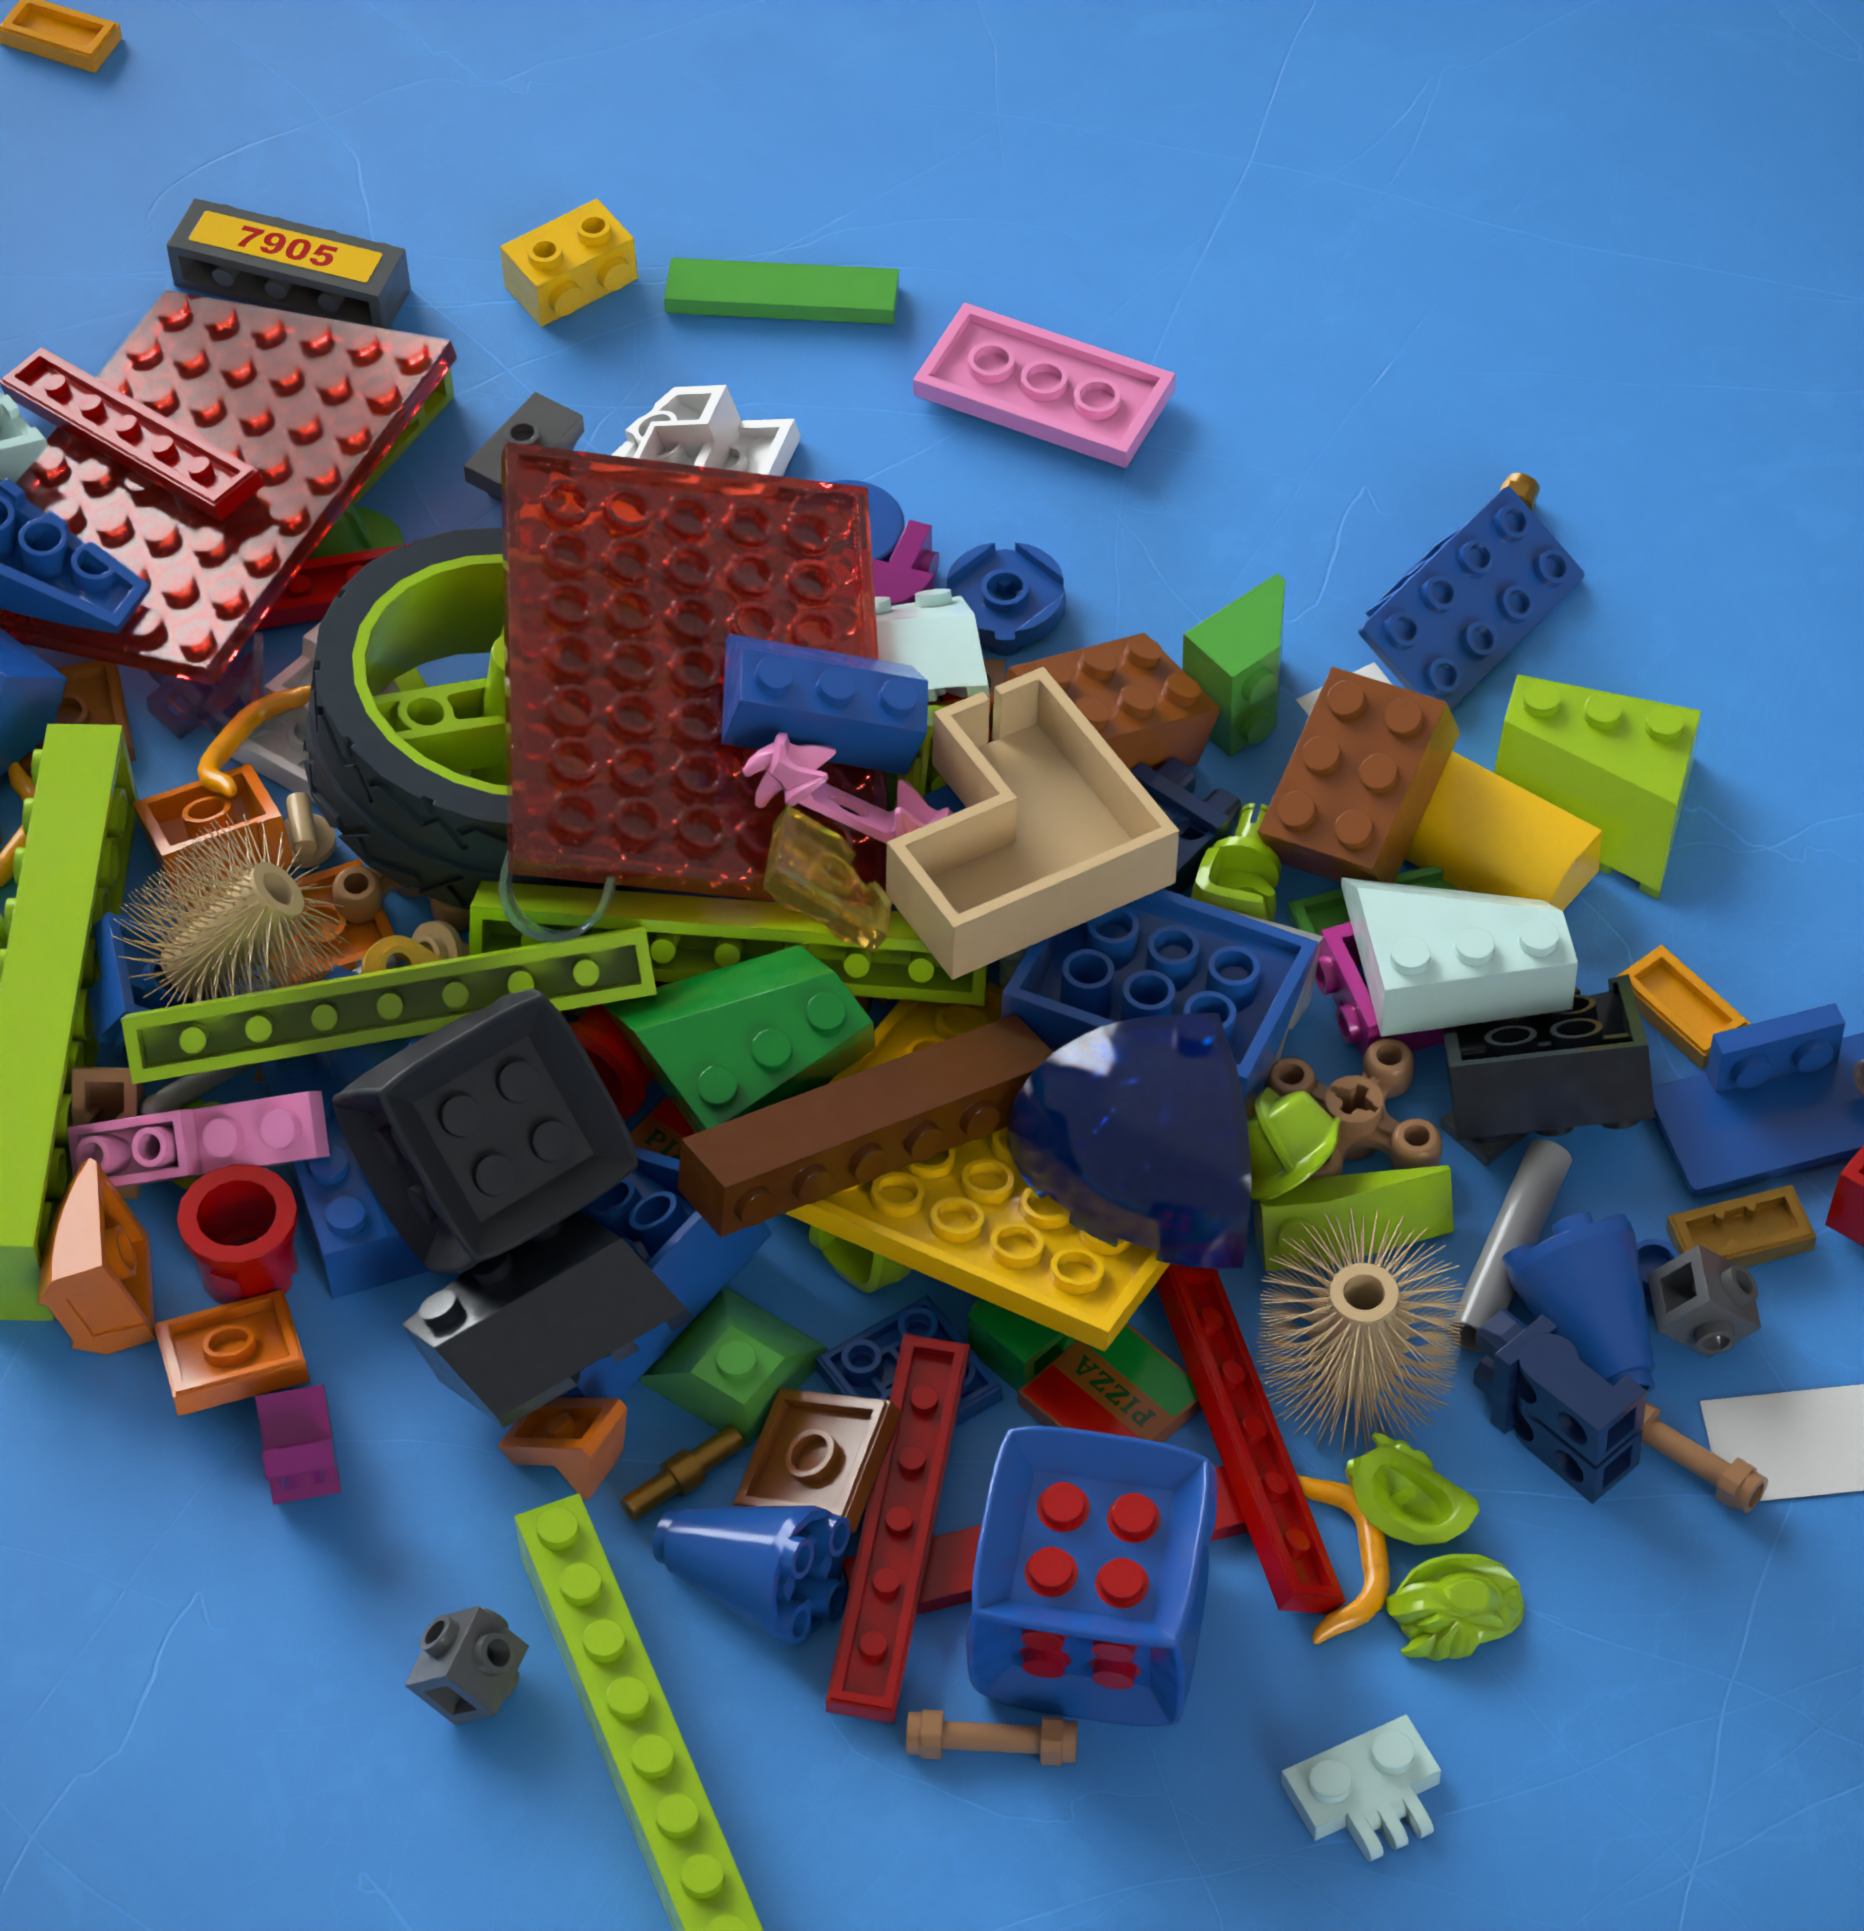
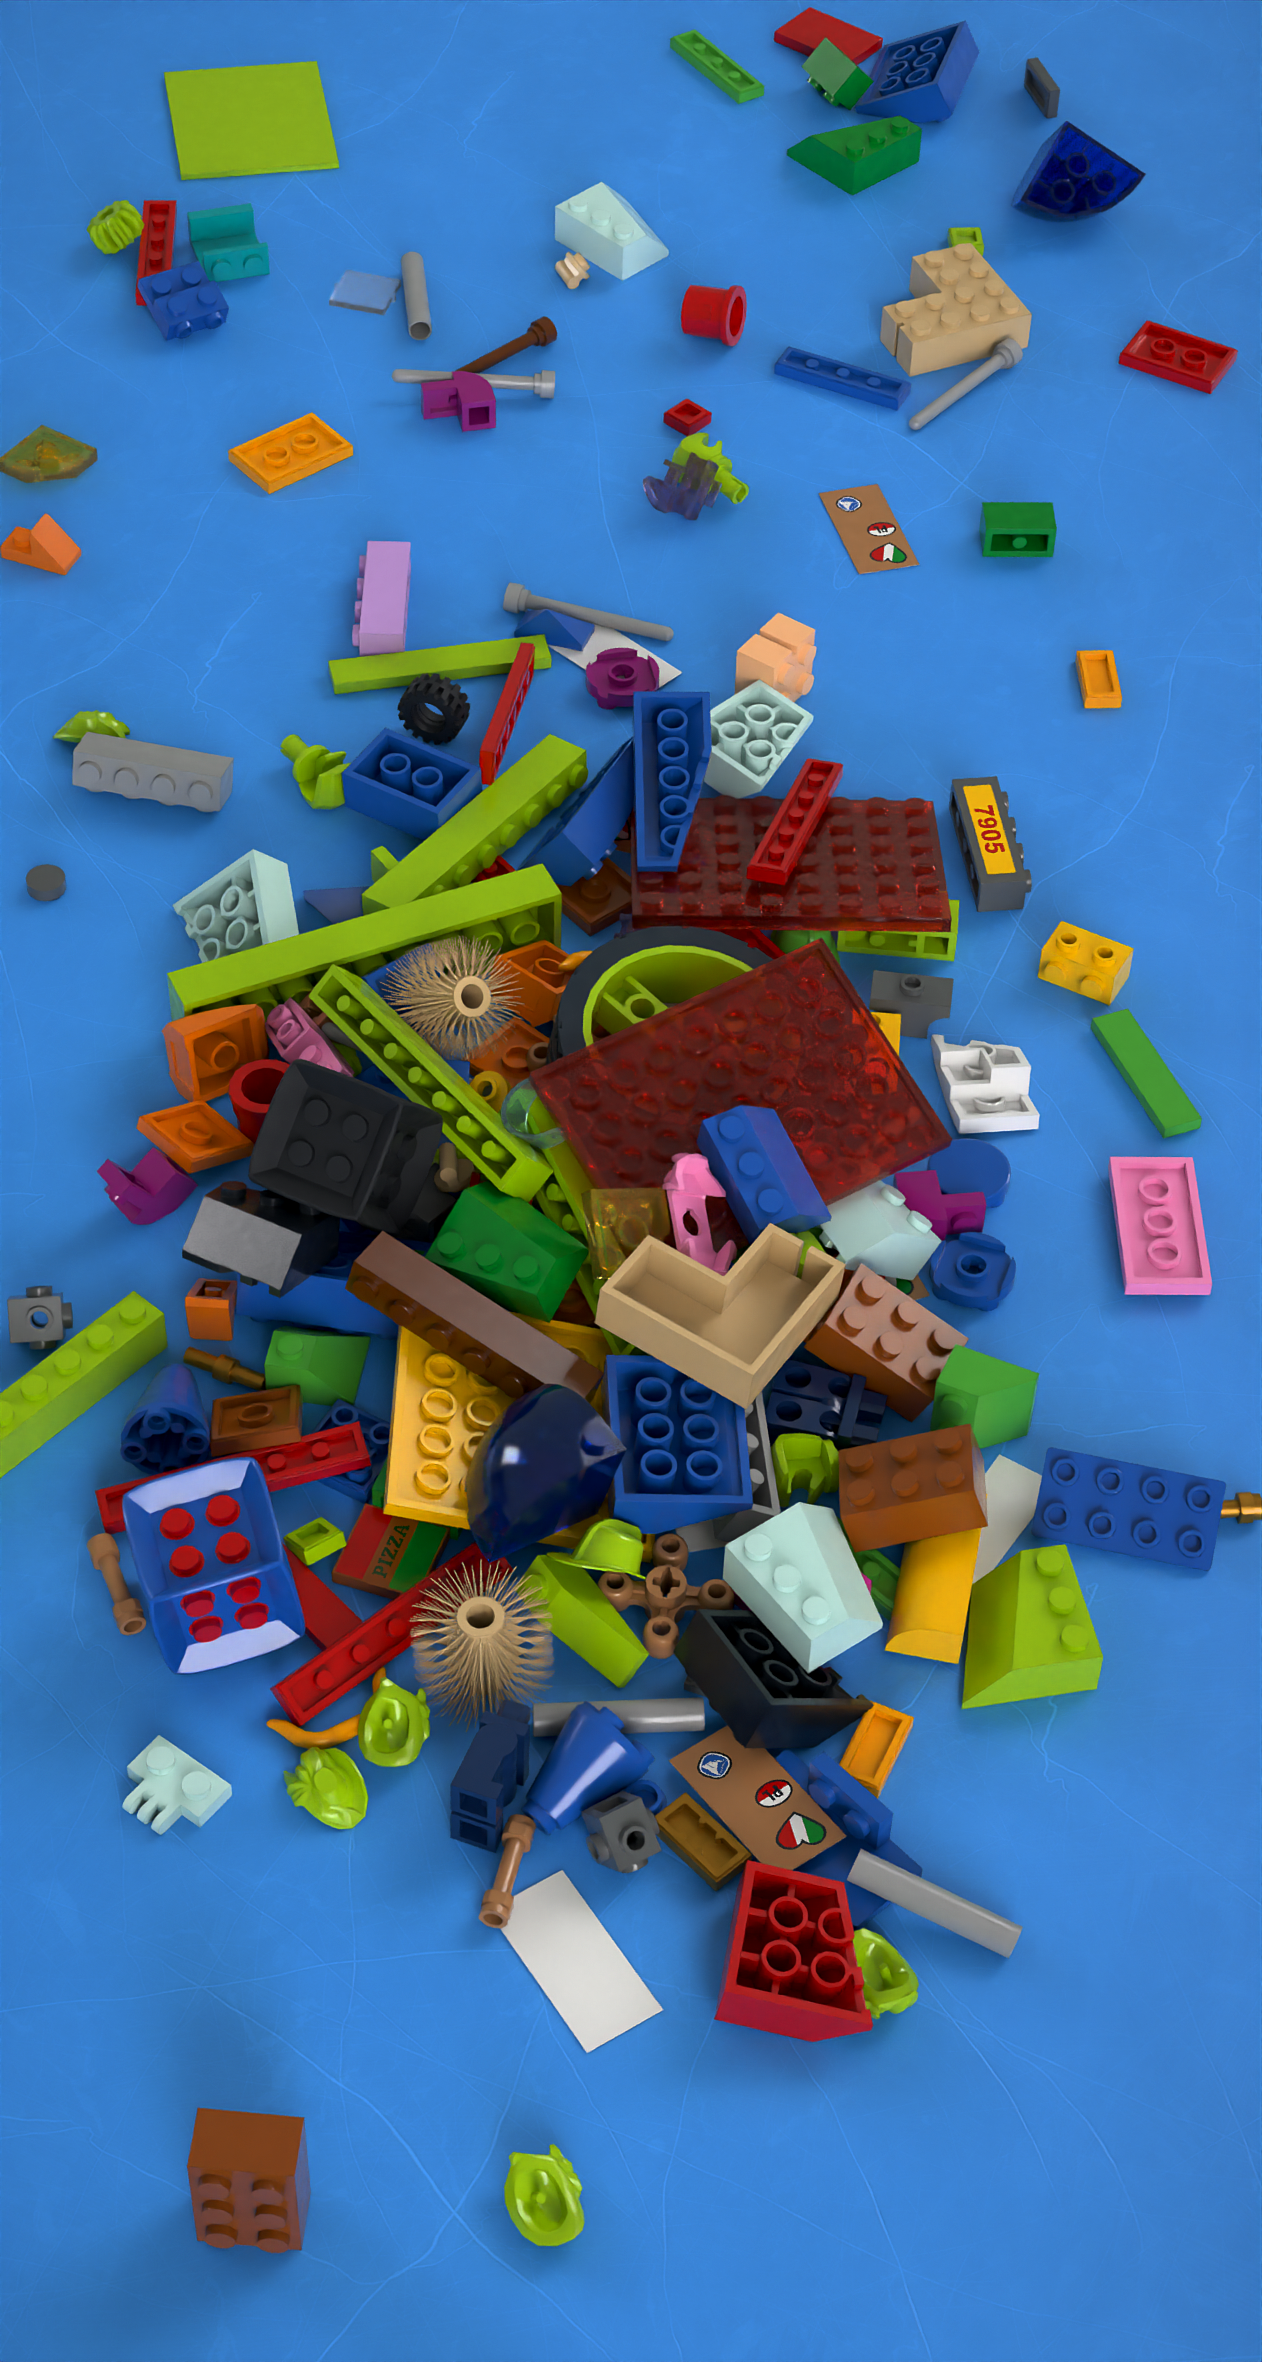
camera: 60 degrees right, 5 degrees down
(1712, 1148) = (757, 1800): none -> medium nougat sticker

